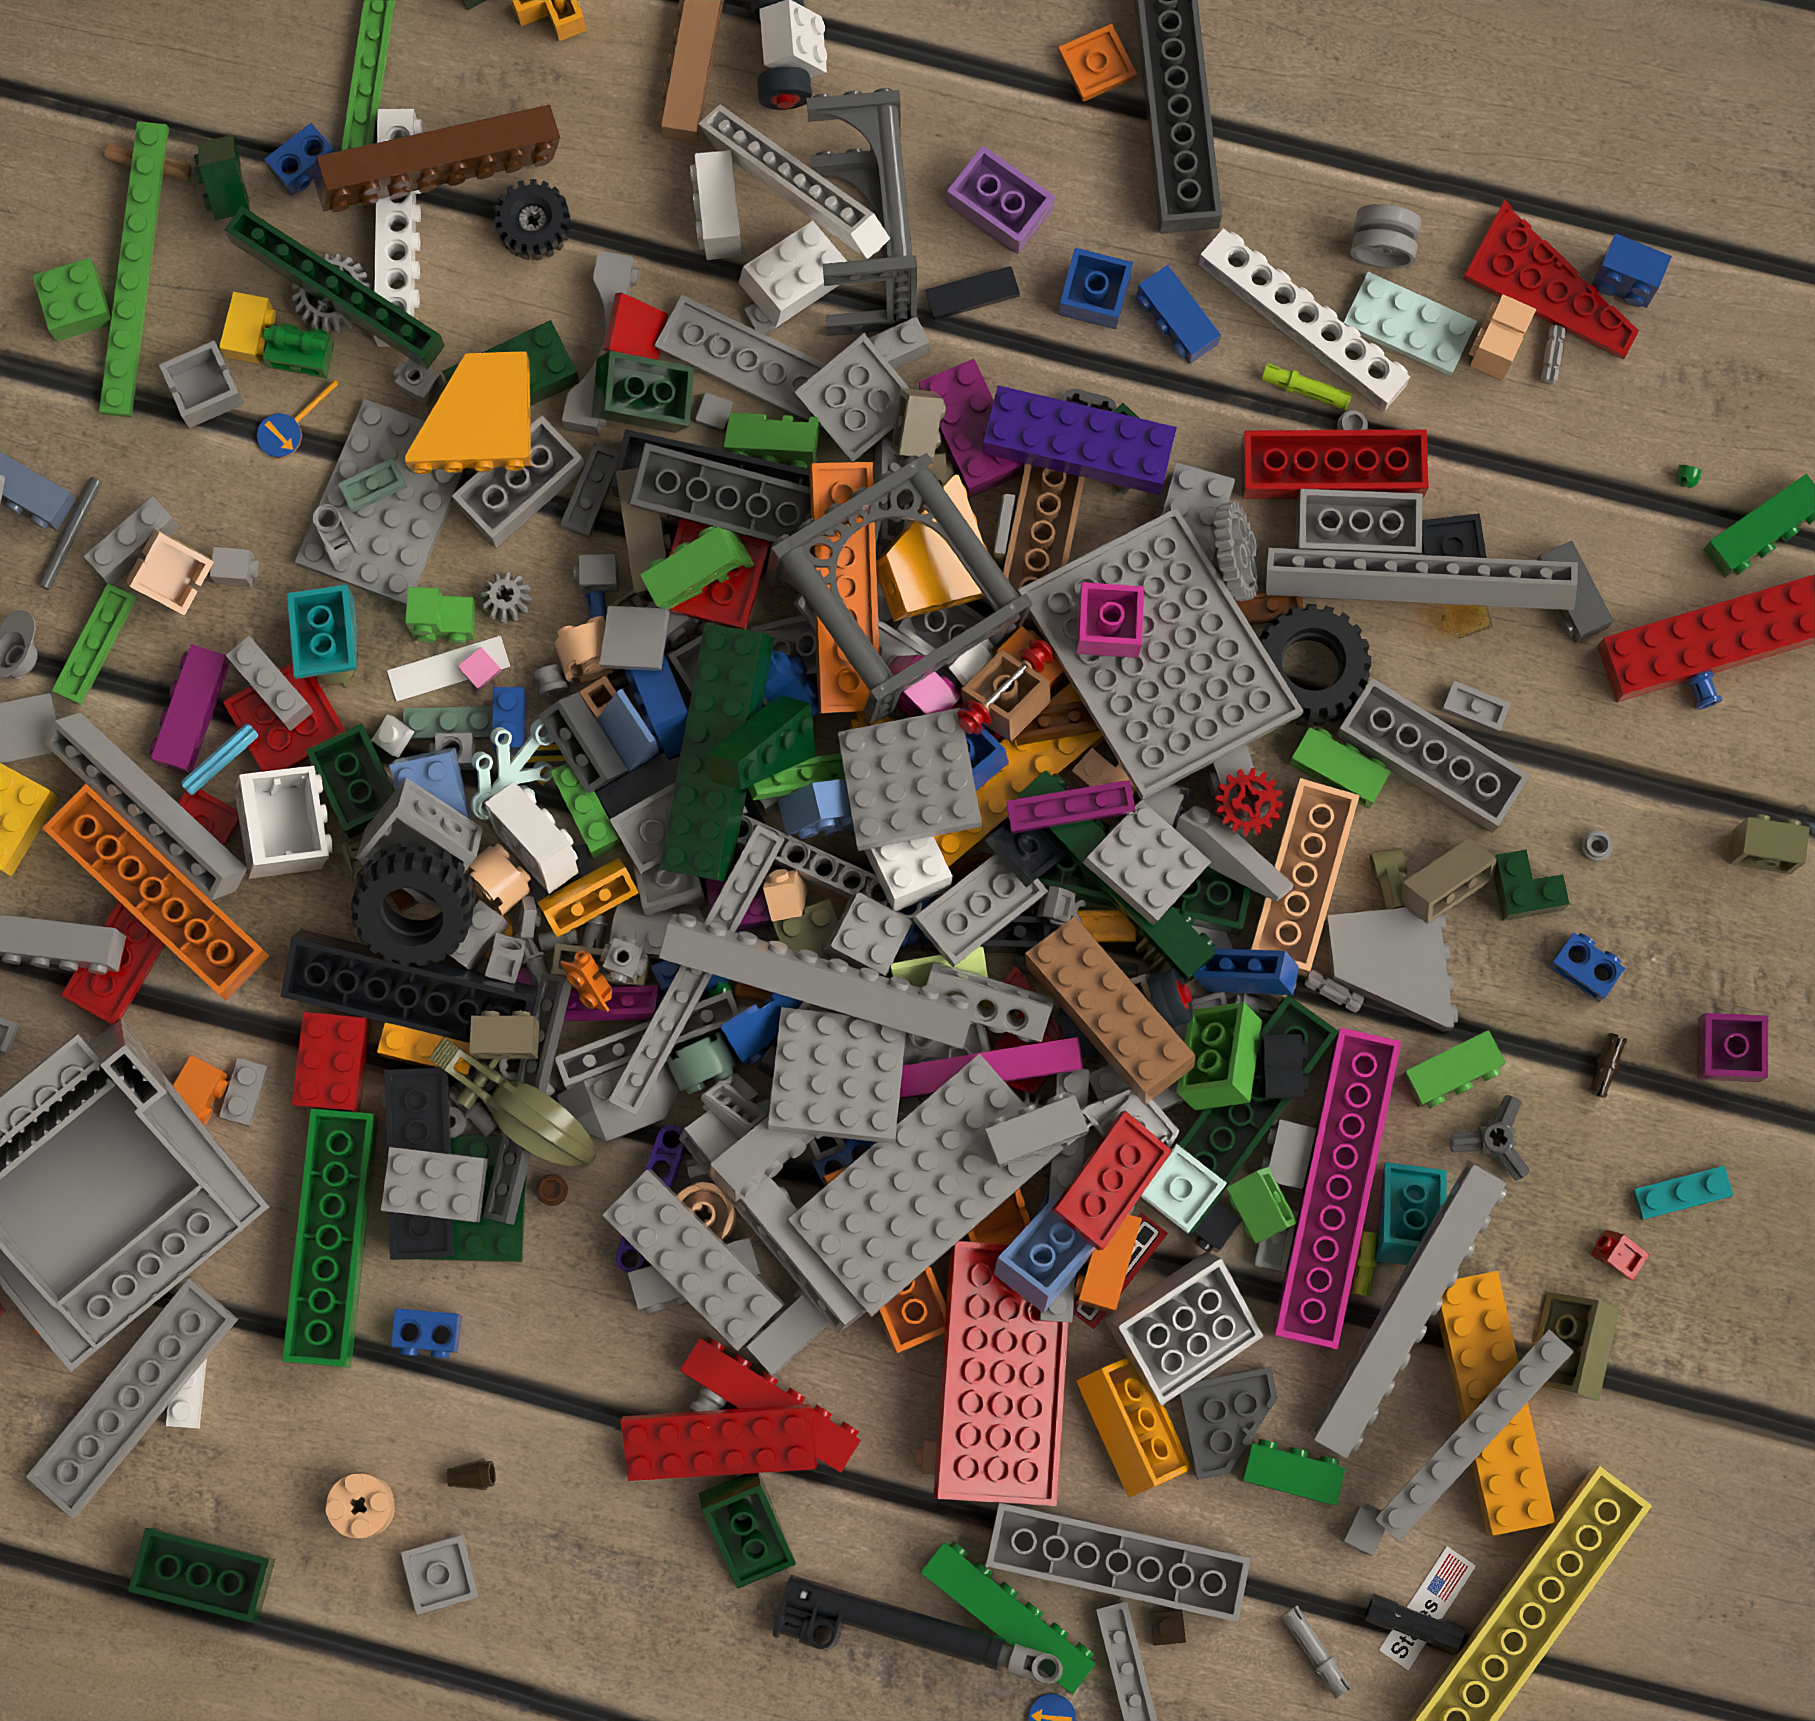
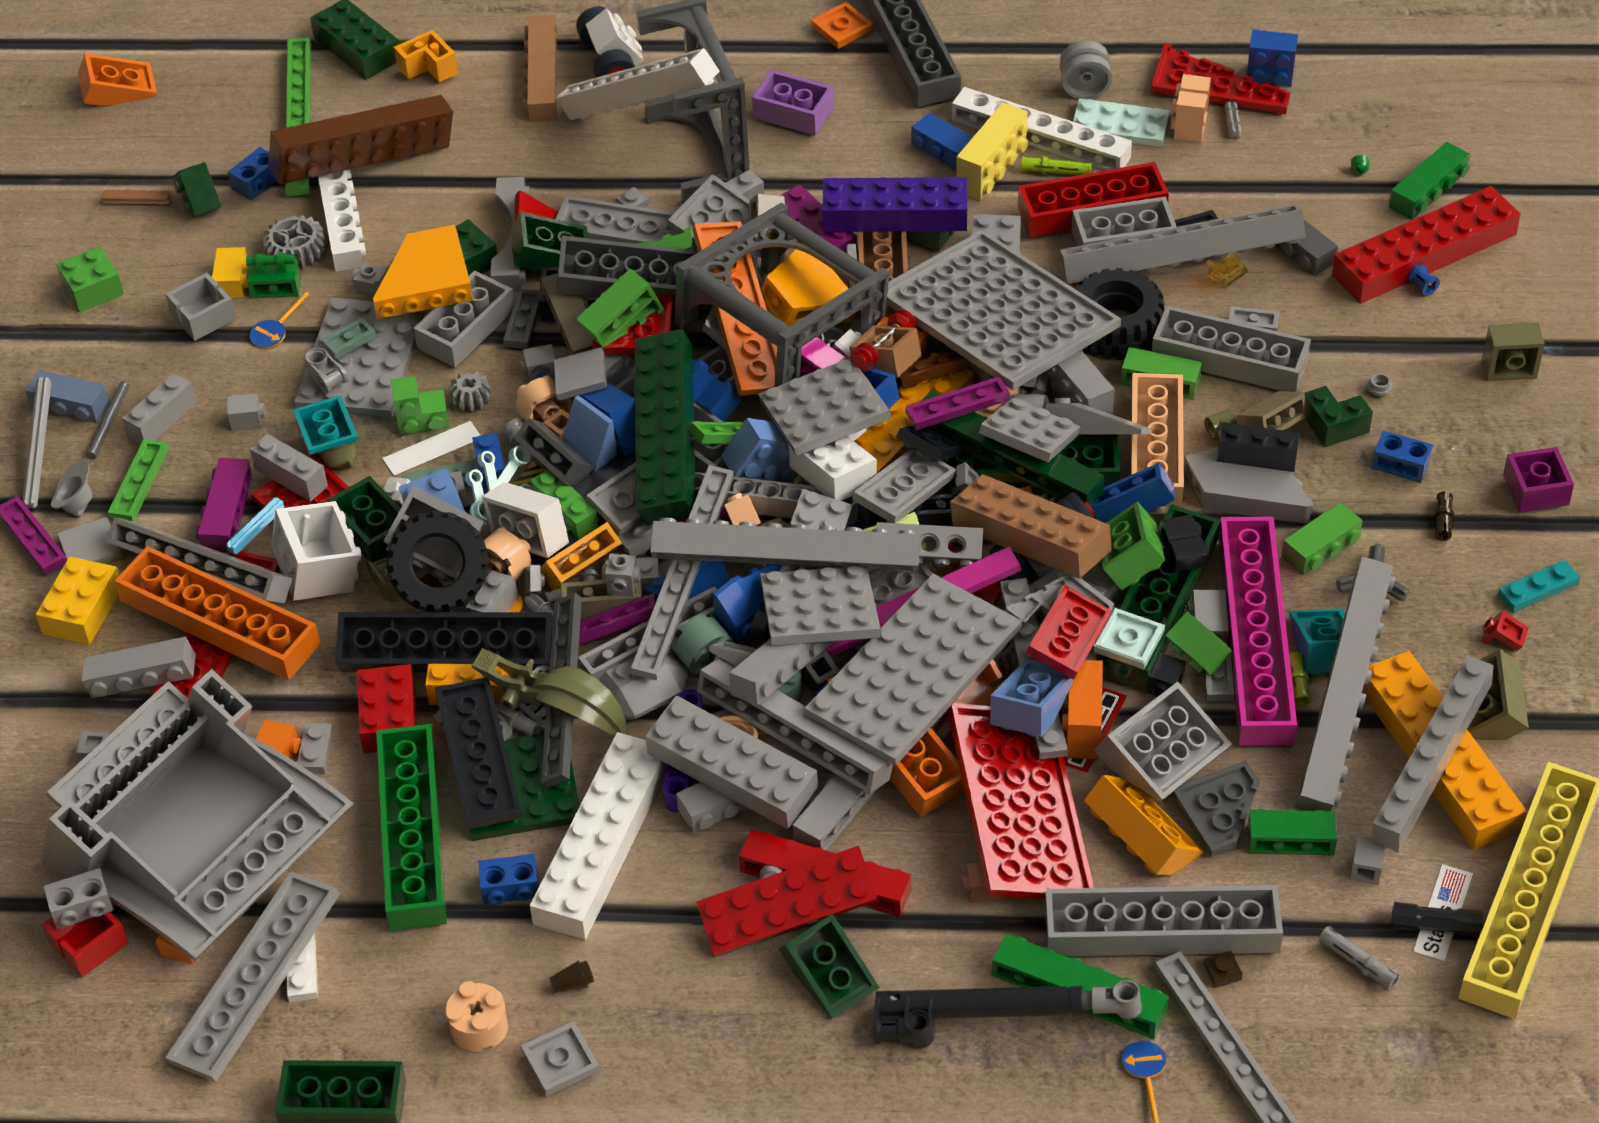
camera: 10 degrees left, 30 degrees down
(134, 269) = (135, 257): bright green plate -> none
(168, 571) = (194, 415): light nougat piece -> none
(334, 287) = (297, 222): dark green brick -> none
(434, 1184) = (494, 752): light grey brick -> none
(479, 668) = (457, 440): bright pink tile -> none
(504, 1036) = (533, 640): dark tan brick -> none
(505, 958) = (521, 601): light grey brick -> none
(533, 201) = (441, 175): black bush -> none
(534, 1300) = (598, 838): none -> white brick
(552, 1189) = (593, 760): reddish brown plate -> none
(592, 991) = (596, 600): orange hinge -> none
(716, 205) = (580, 138): white brick -> none
(764, 744) = (703, 401): dark green wedge -> none
(790, 274) = (649, 166): white brick -> none
(972, 293) = (787, 161): black tile -> none
(1035, 1130) = (995, 603): light grey brick -> none
(1095, 288) = (879, 136): blue brick -> none
(1110, 620) = (952, 283): dark pink brick -> none
(1230, 353) = (993, 150): none -> light yellow brick
(1235, 806) = (1097, 379): red gear -> none
(1236, 551) = (1033, 245): light grey gear -> none
(1334, 991) = (1207, 509): light grey axle -> none
(1414, 935) = (1258, 447): none -> black brick

